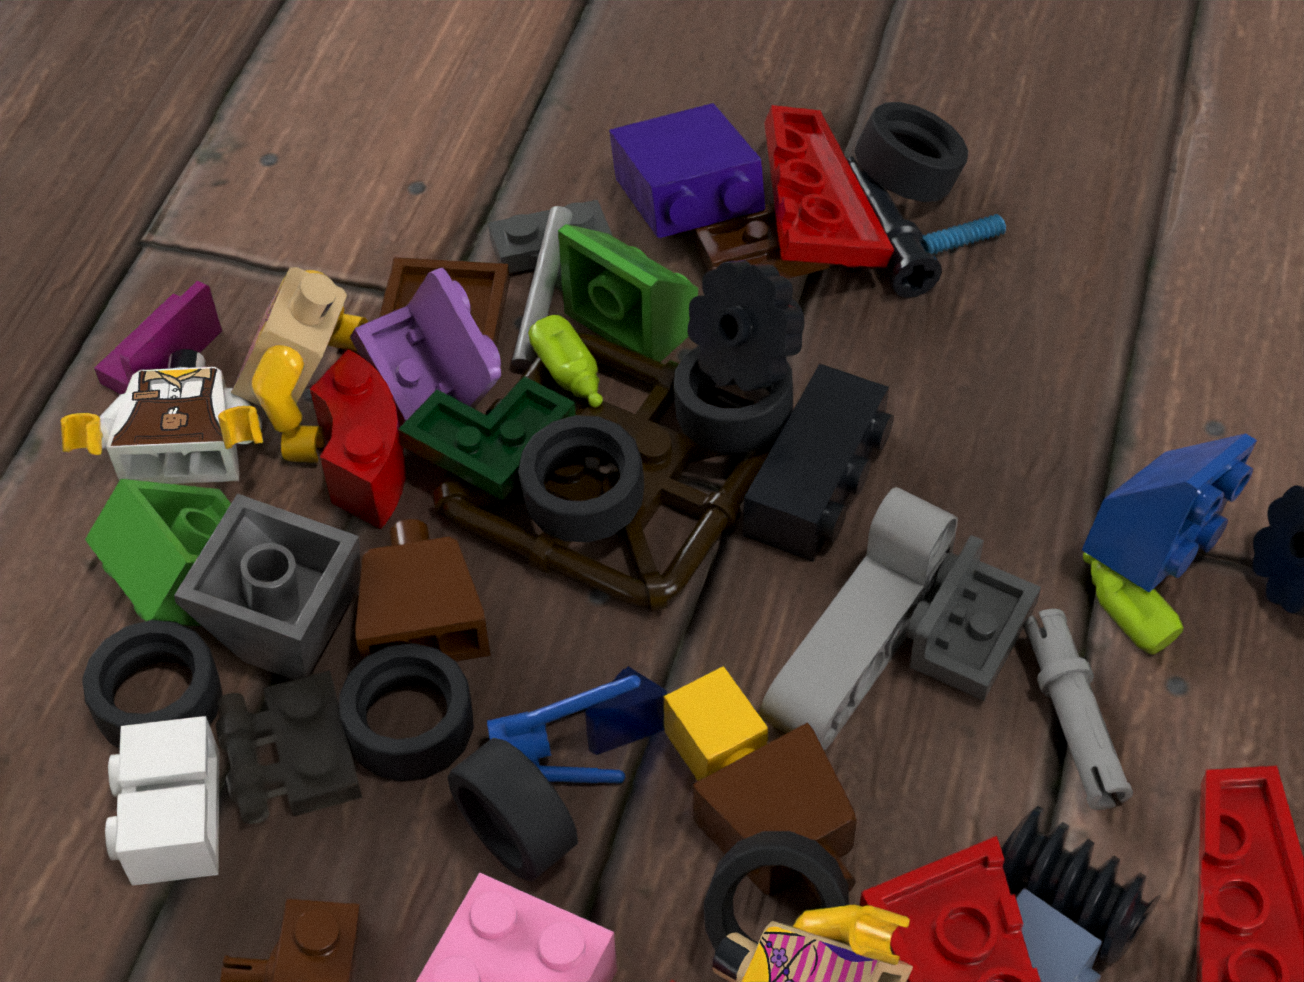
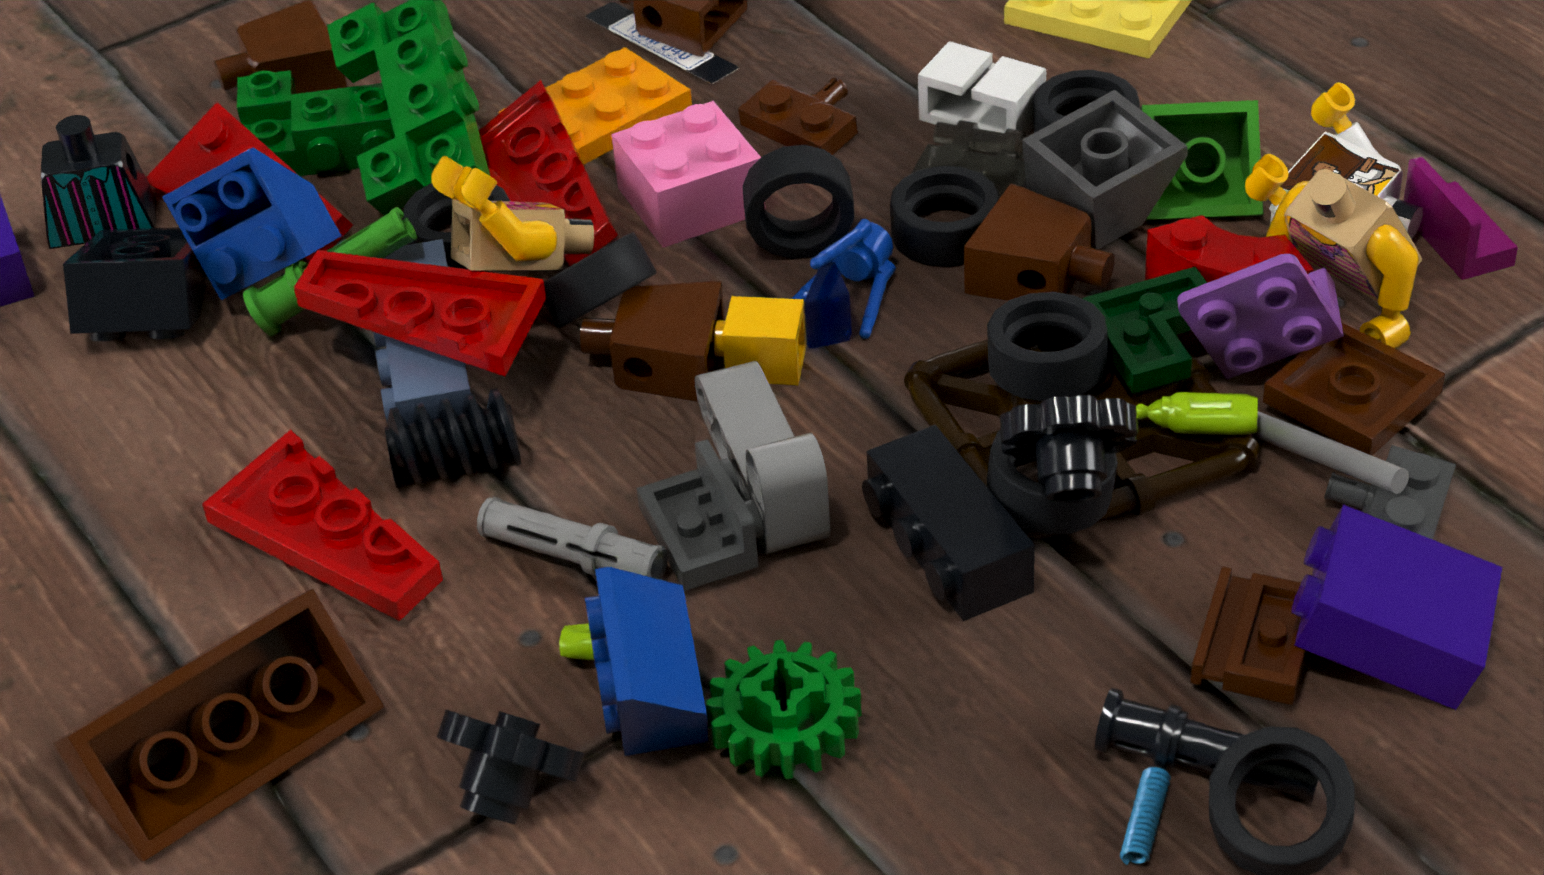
camera: 130 degrees right, 10 degrees down
(623, 293) = (1255, 476): bright green slope -> none
(817, 195) = (1252, 674): red wing -> none
(1089, 442) = (818, 716): none -> green gear

